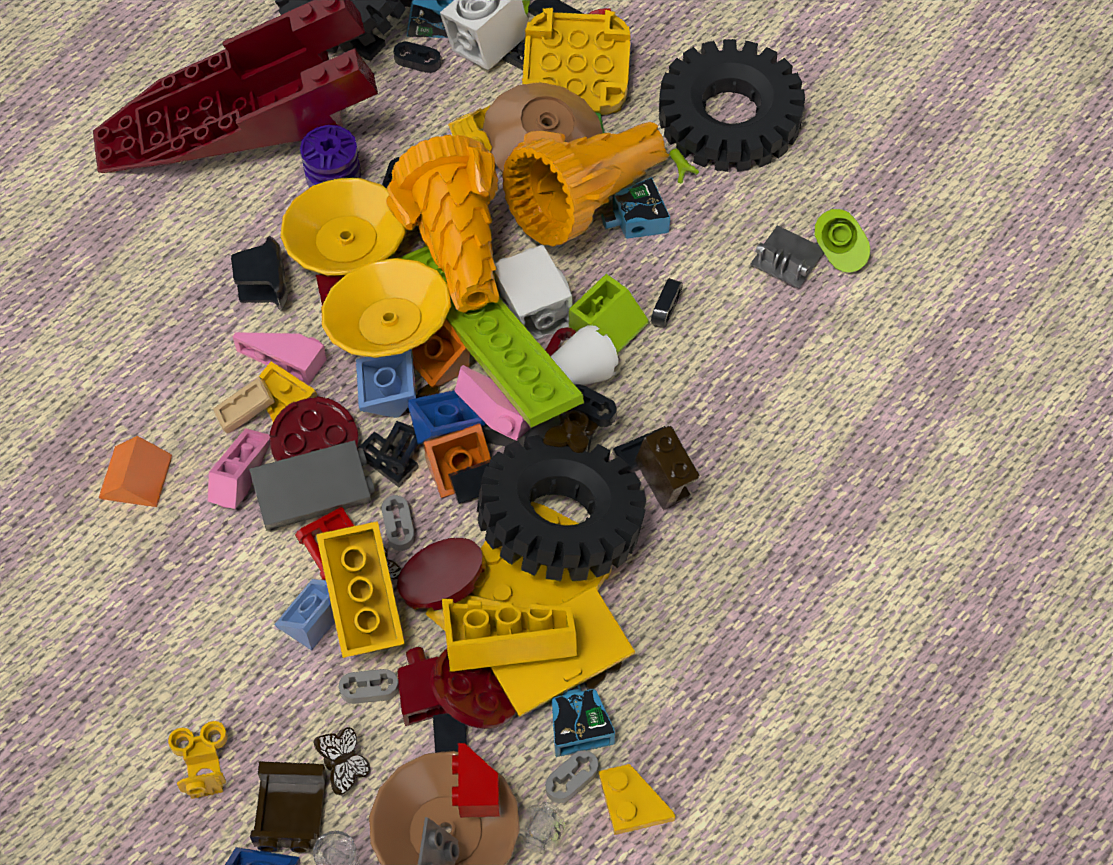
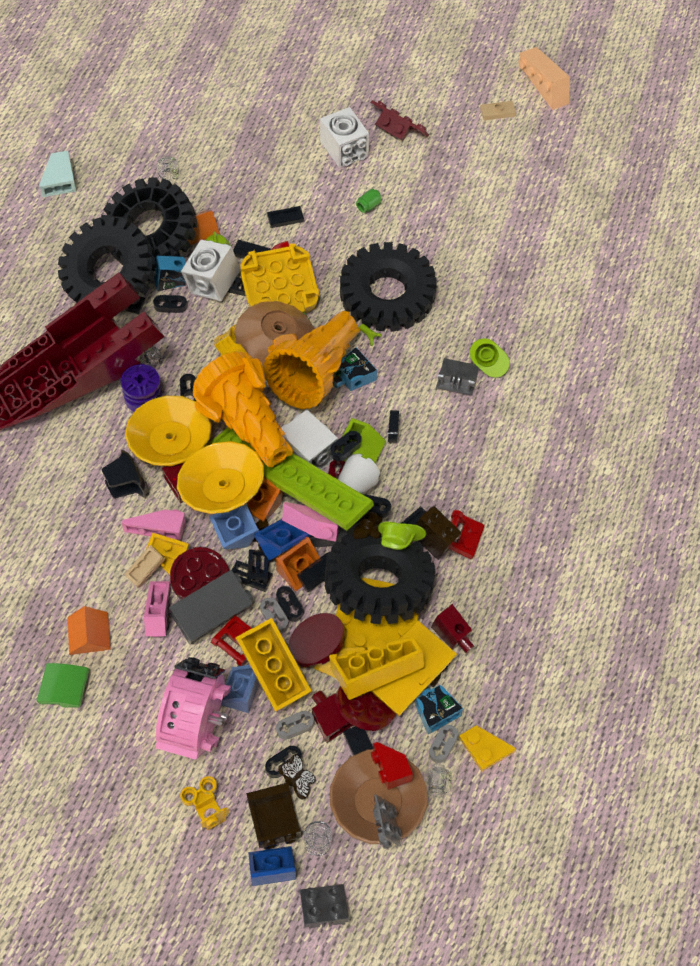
camera: 20 degrees left, 0 degrees up
(72, 537) = (63, 685): none -> bright green slope
(221, 617) = (191, 708): none -> bright pink piece
(329, 726) = (280, 758): none -> black beam
(359, 120) = (151, 357): none -> clear head
(431, 512) = (293, 601): none -> black beam
(581, 310) = (346, 446): none -> black beam
(607, 456) = (399, 535): none -> lime piece
(639, 604) = (453, 629): none -> dark red torso
(719, 488) = (470, 534): none -> red plate

